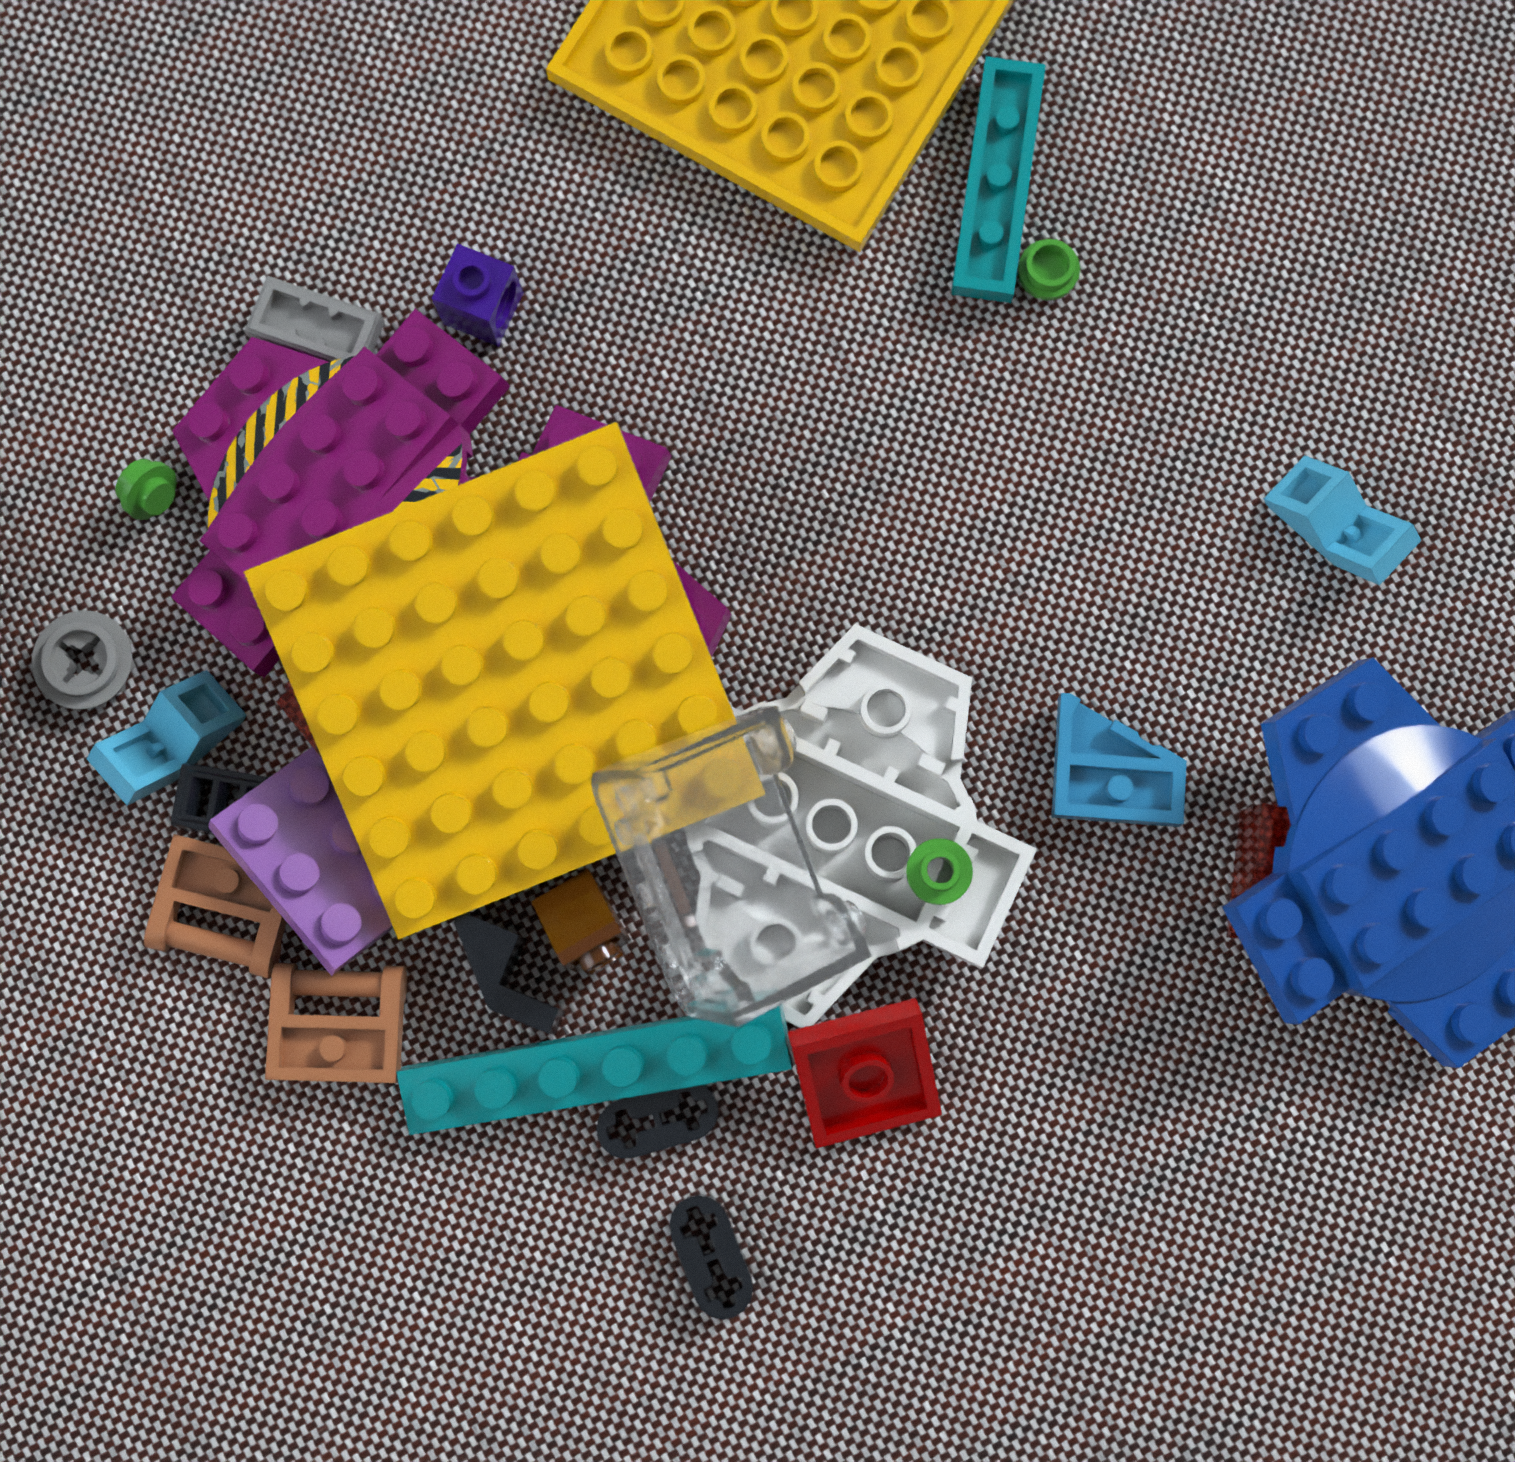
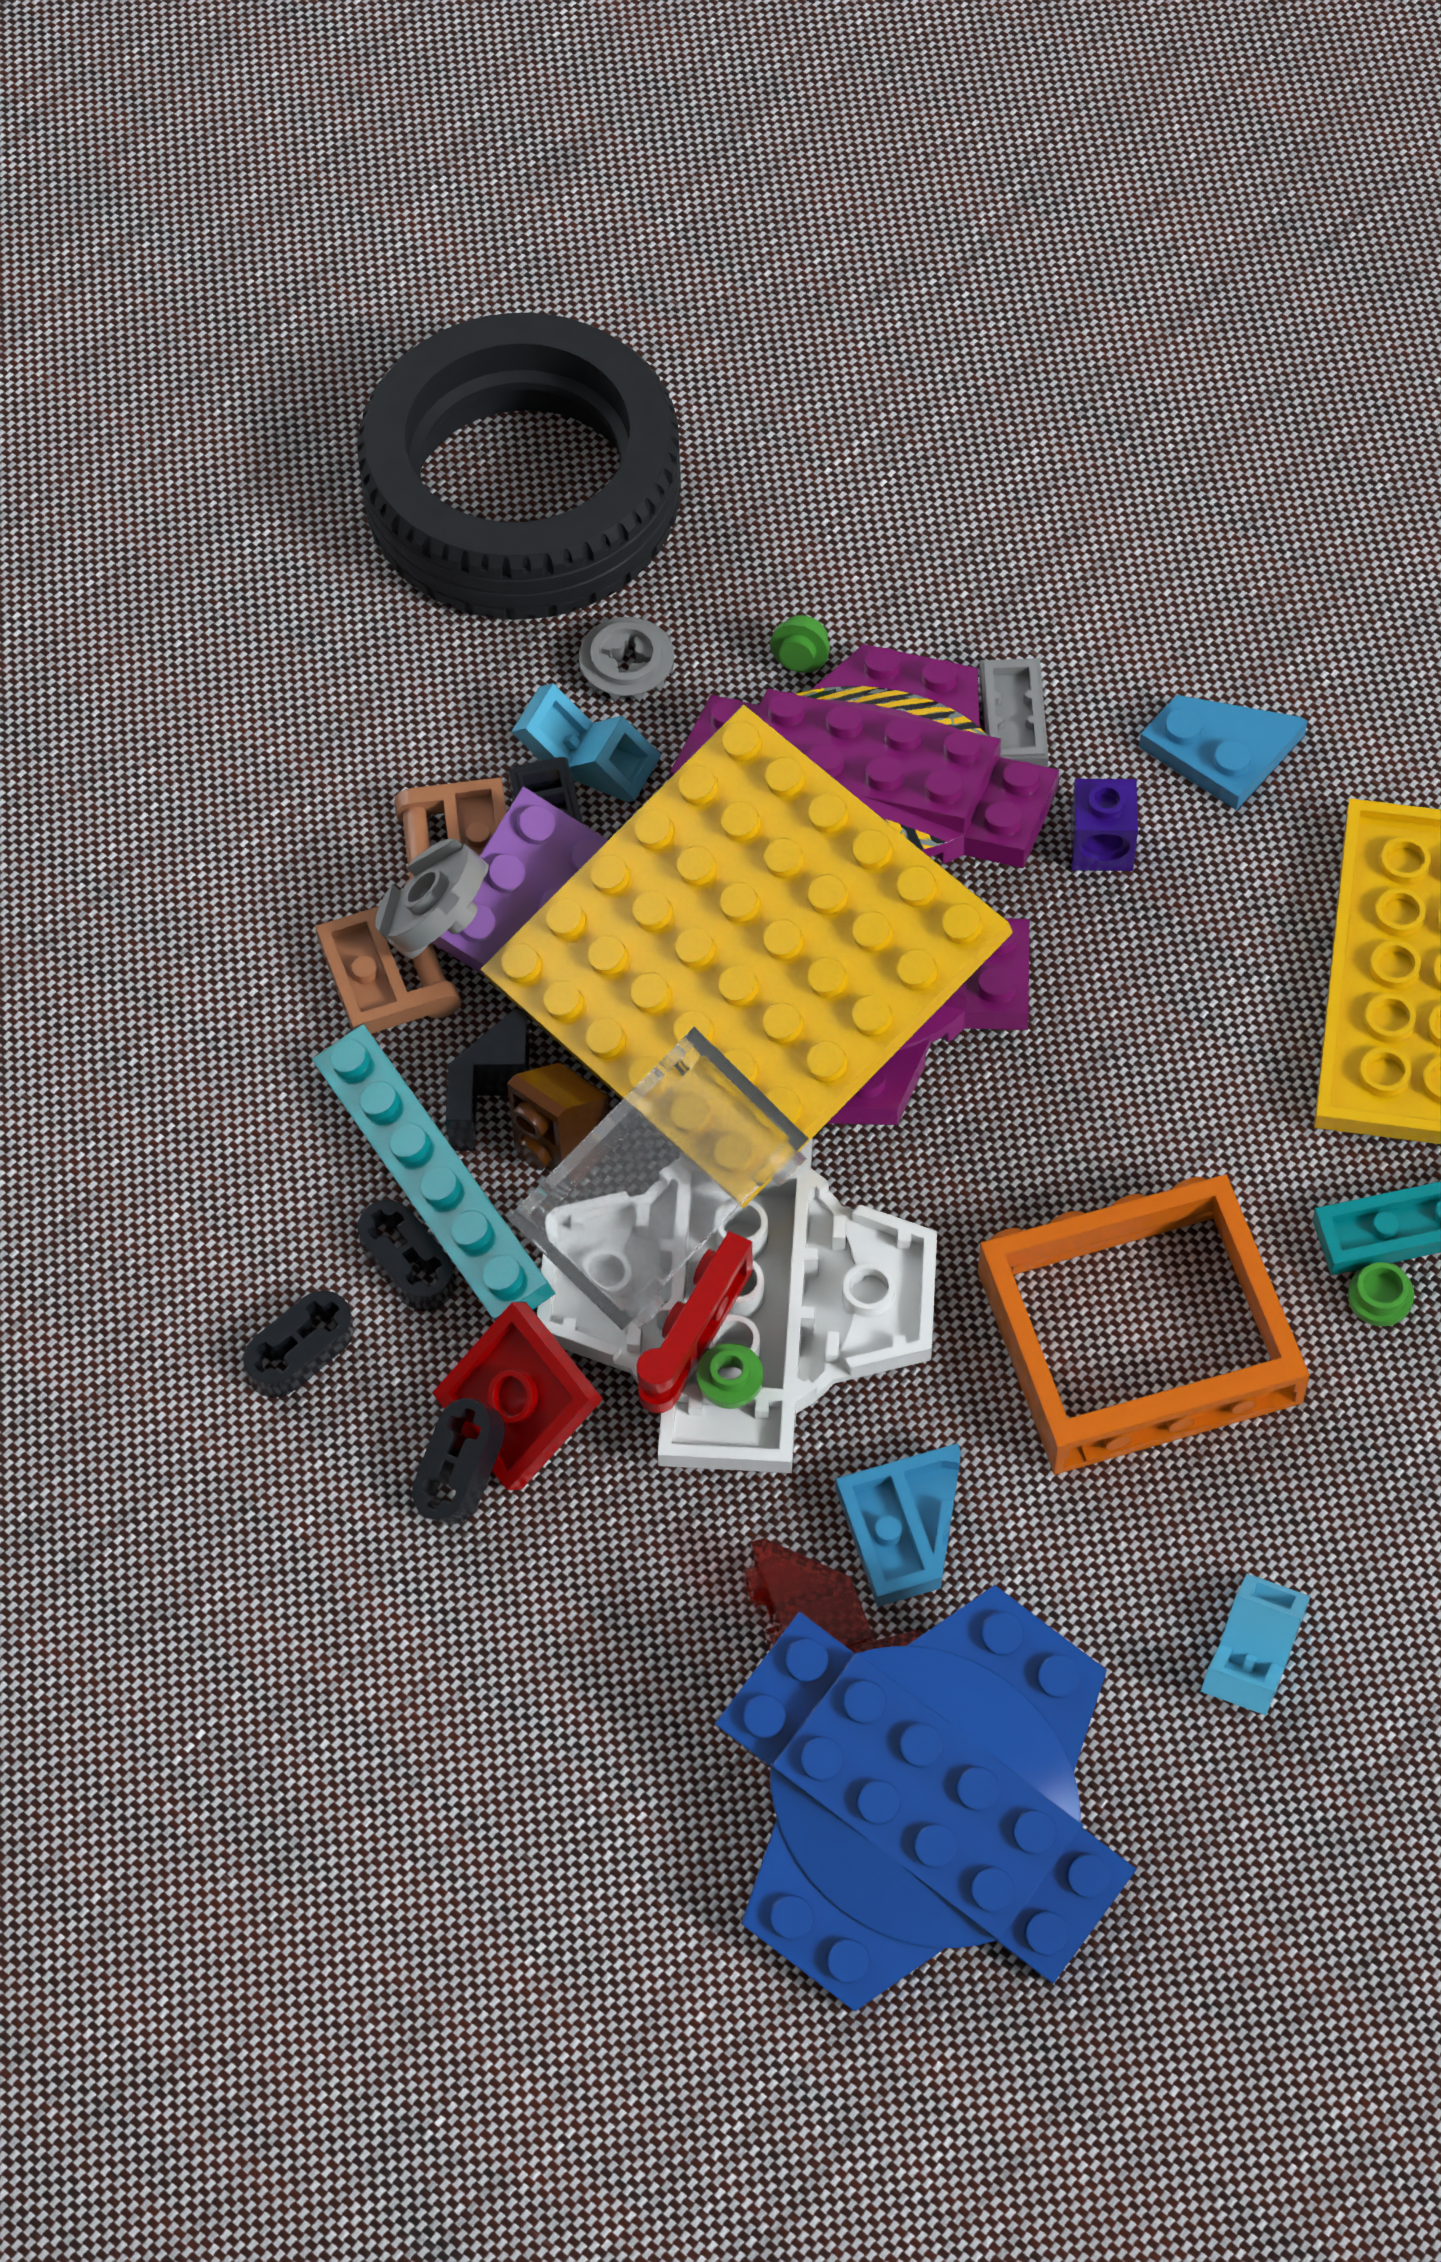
camera: 65 degrees right, 20 degrees down
(299, 932) = (433, 899): none -> light grey plate
(428, 156) = (1221, 744): none -> dark azure wing
(879, 885) = (693, 1325): none -> red plate
(895, 1161) = (458, 1461): none -> black beam
(1108, 386) = (1166, 1414): none -> orange window
(1175, 887) = (794, 1583): none -> clear red slope

